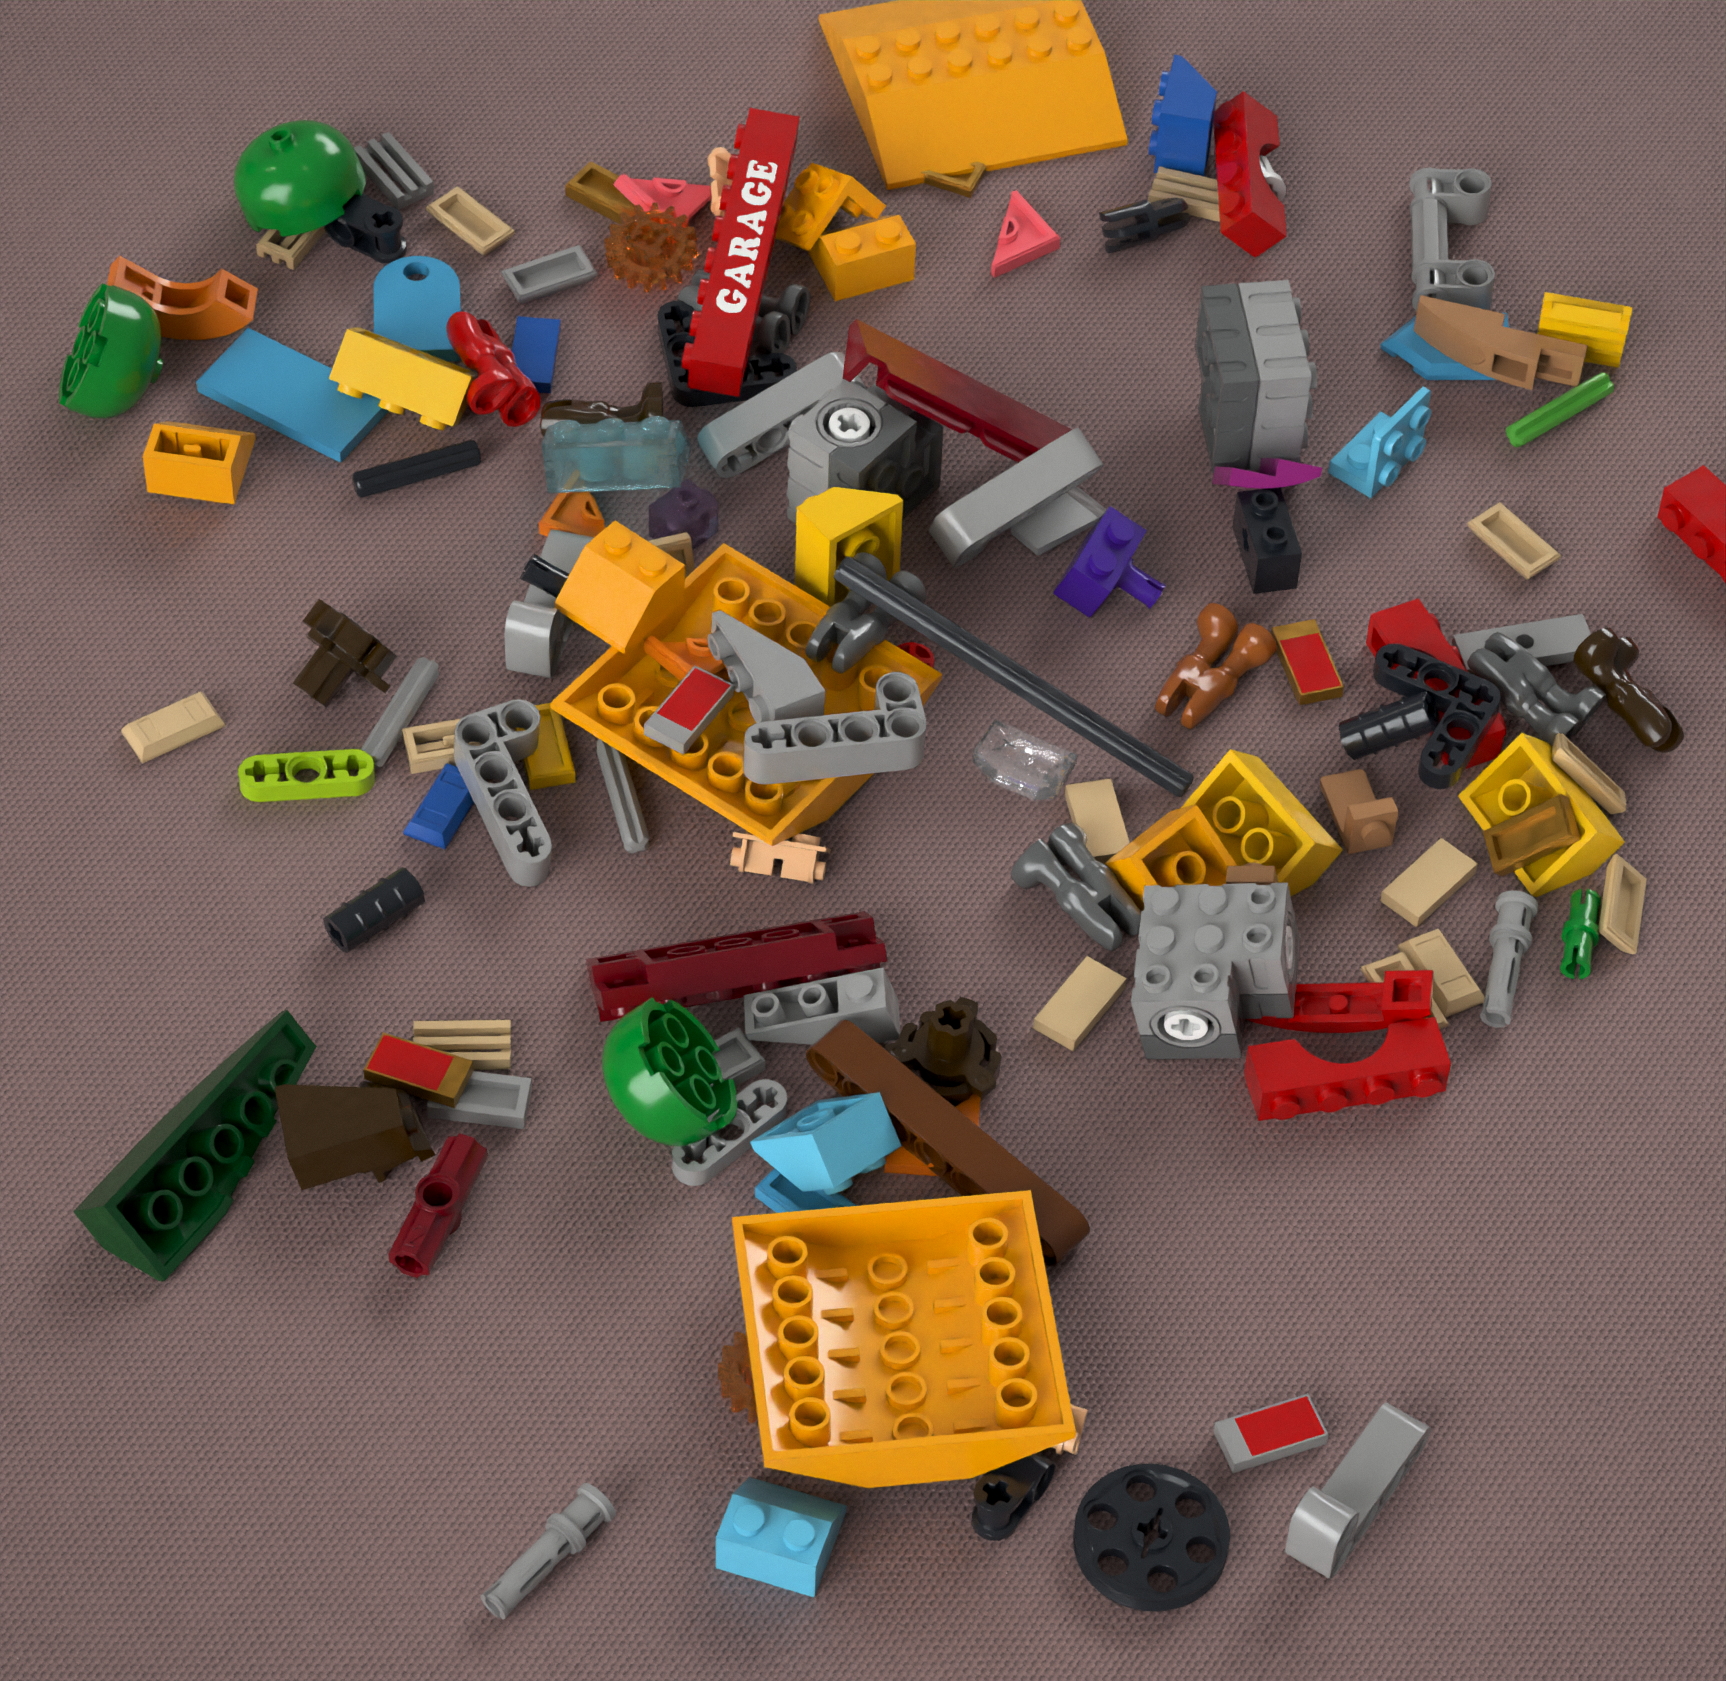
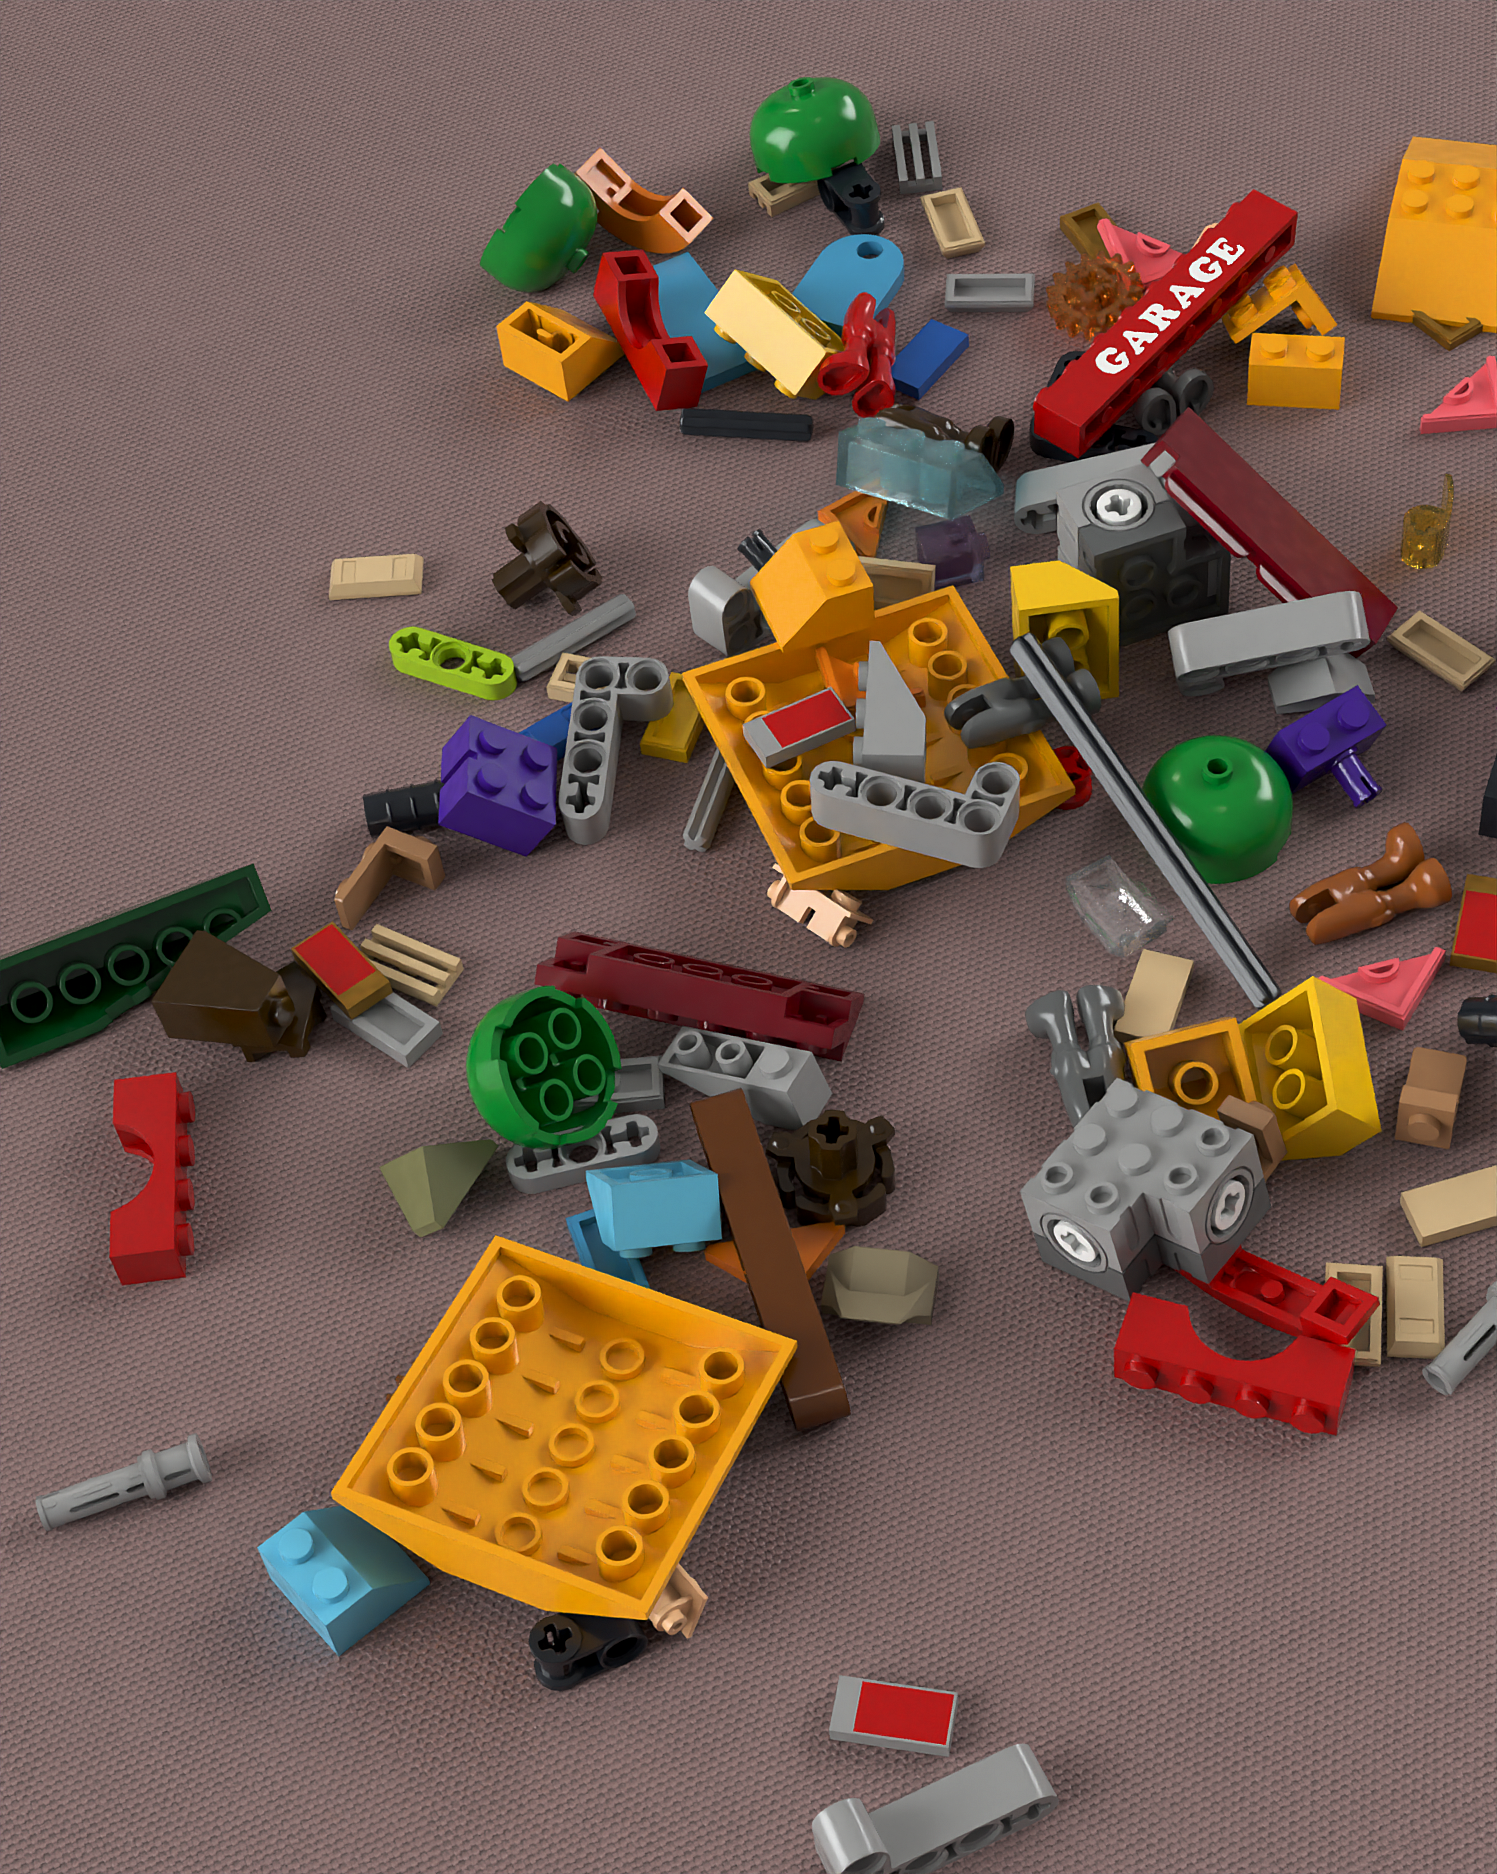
camera: 40 degrees right, 0 degrees up
(243, 388) = (629, 298): none -> red arch
(346, 1264) = (151, 1230): none -> red arch
(394, 956) = (392, 854): none -> medium nougat bracket
(428, 1225) = (269, 1105): dark red piece -> none
(460, 862) = (498, 786): none -> dark purple piece
(629, 1209) = (435, 1180): none -> olive slope
(1043, 1128) = (880, 1286): none -> dark tan slope
(1058, 638) = (1223, 805): none -> green cylinder
(1062, 354) = (1428, 530): none -> clear yellow panel
(1079, 1003) = (998, 1176): tan tile -> none
(1136, 455) = (1440, 651): none -> tan tile
(1166, 1553) = (694, 1792): black wedge -> none
(1269, 737) = (1391, 988): none -> coral tile

